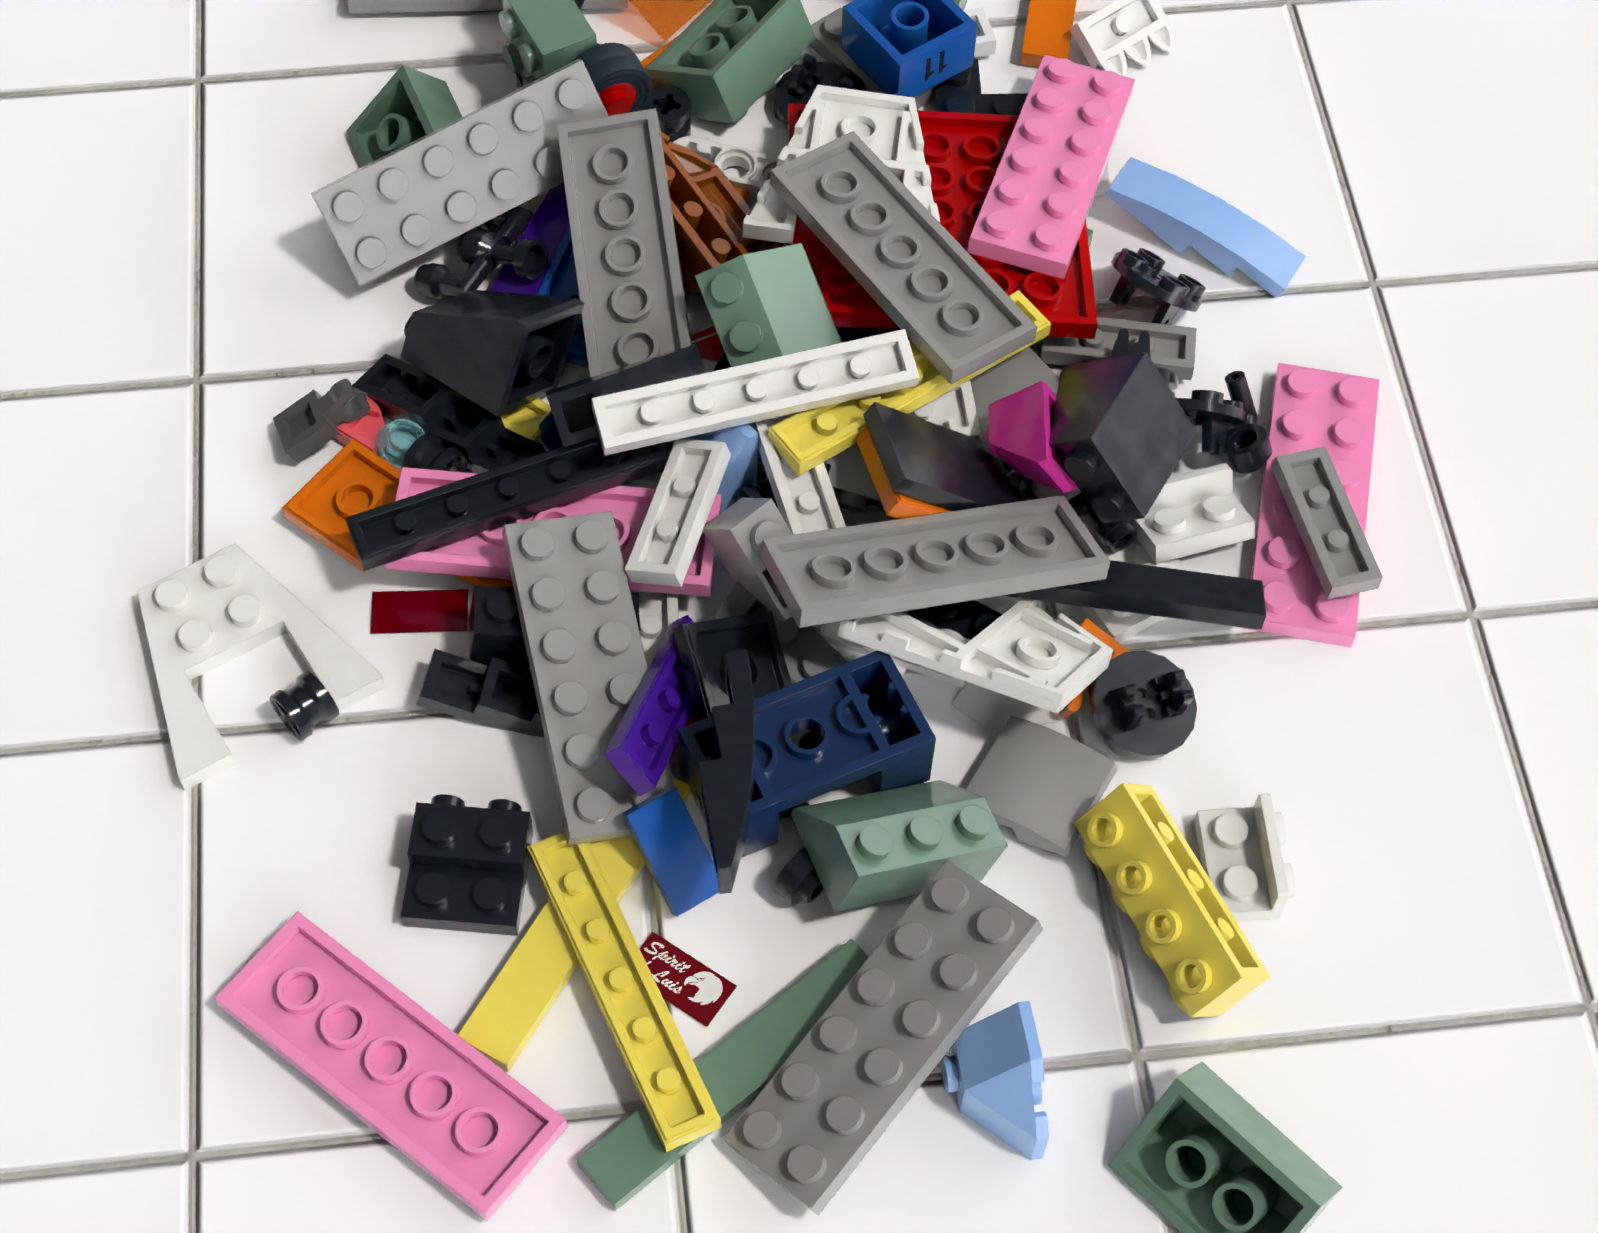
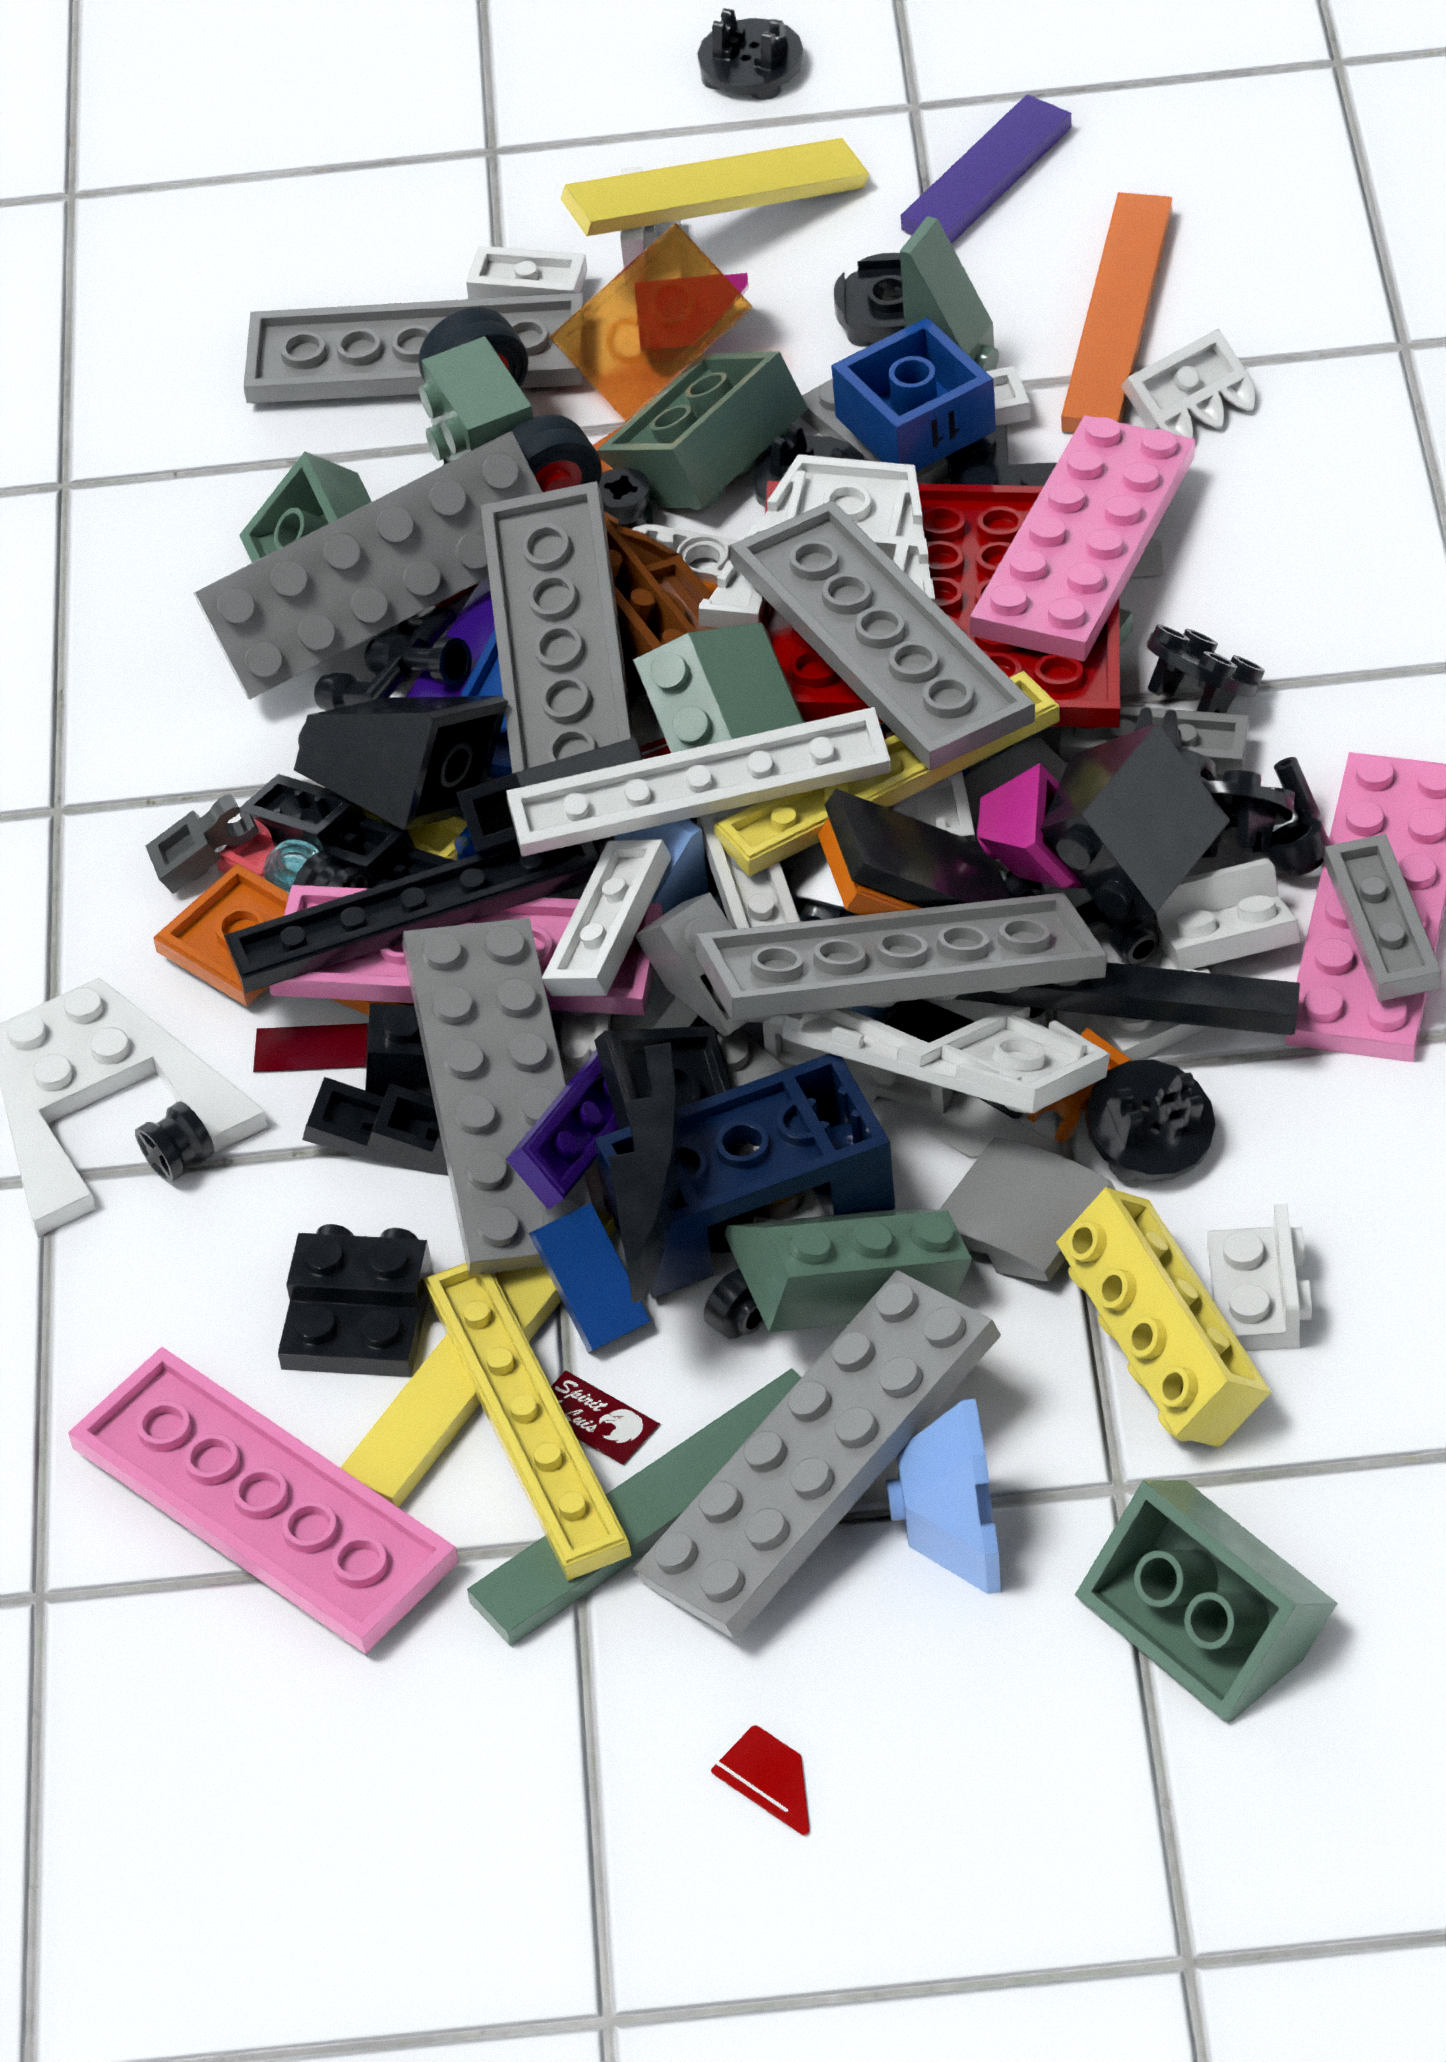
camera: 10 degrees right, 10 degrees down
(1215, 229) = (1279, 603): light blue slope -> none

